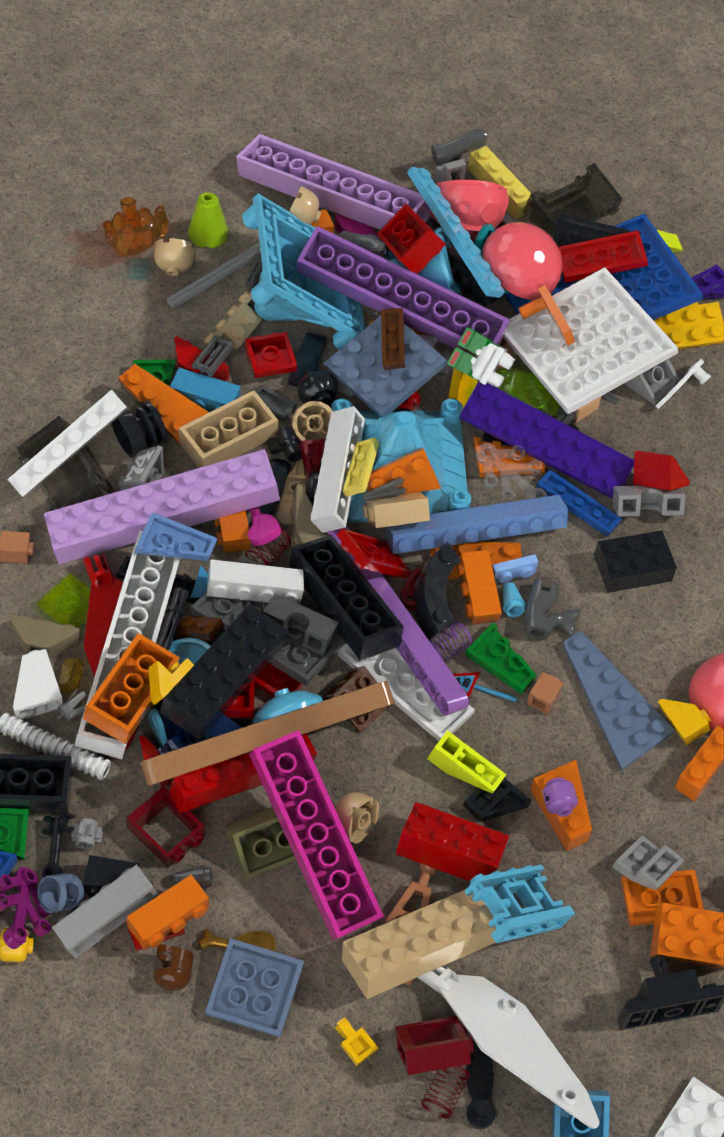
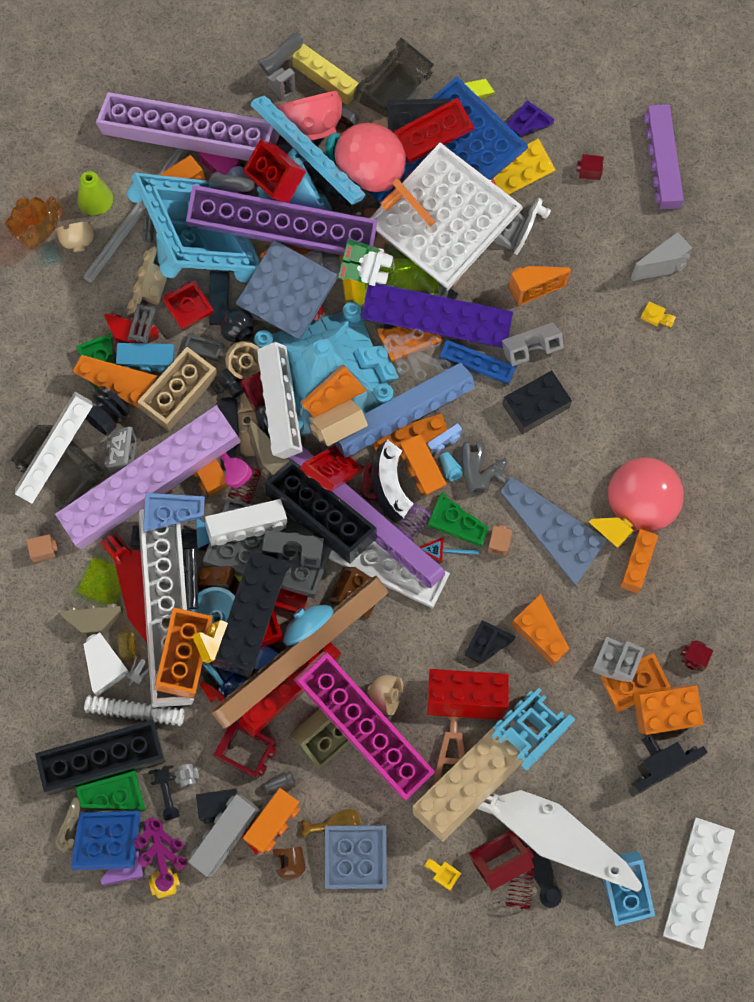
camera: 15 degrees left, 15 degrees up
(60, 892) = (184, 831): sand blue helmet -> none
(306, 206) = (174, 163): tan cylinder -> none
(360, 467) = (298, 395): light yellow tile -> none
(388, 489) = (327, 407): dark grey piece -> none
(393, 338) = (287, 269): reddish brown plate -> none
(465, 764) = (457, 623): neon yellow slope -> none
(466, 466) = (379, 359): none -> medium azure plate
(560, 797) = (539, 632): medium lavender head -> none
(658, 471) = (534, 319): red slope -> none
(675, 437) = (536, 281): none -> orange slope

